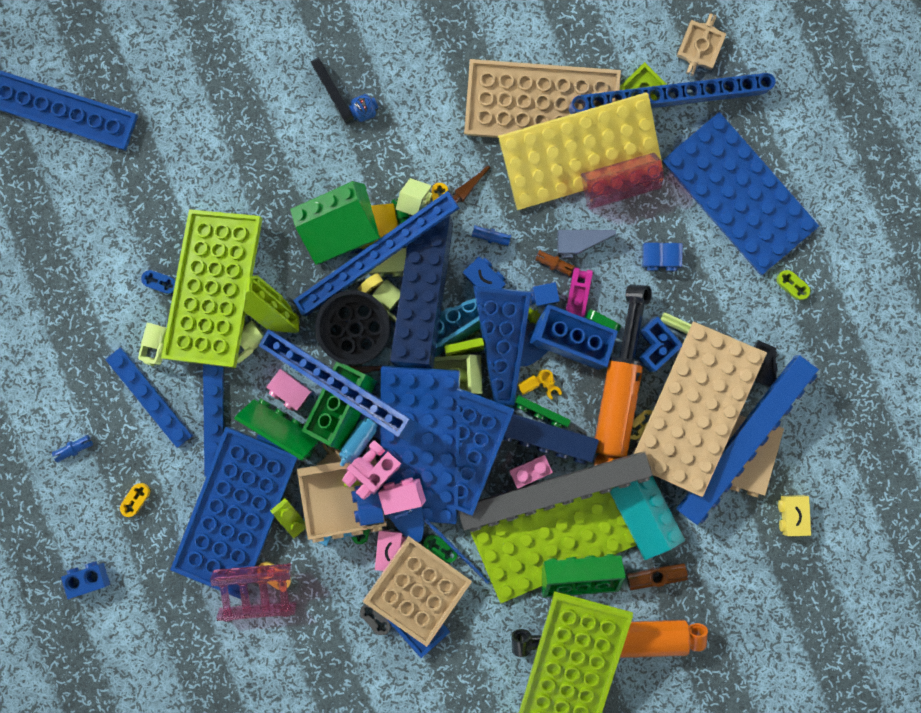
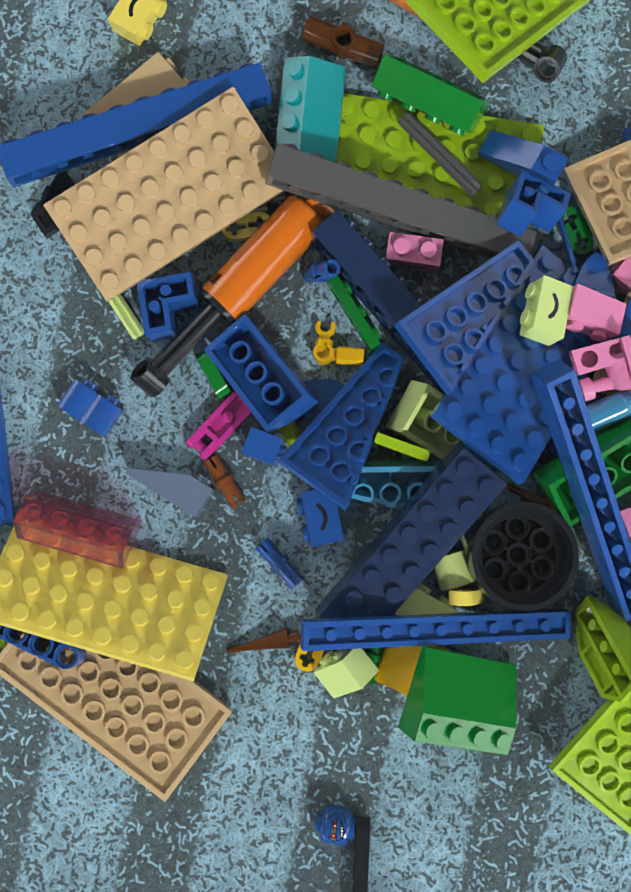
camera: 150 degrees left, 0 degrees up
(430, 479) = (546, 310): none -> yellowish green brick
(480, 544) = (533, 202): none -> blue brick
(501, 570) = (517, 153): none -> blue slope
(552, 542) = (440, 154): none -> dark grey axle
(578, 422) = (321, 271): none -> blue pin

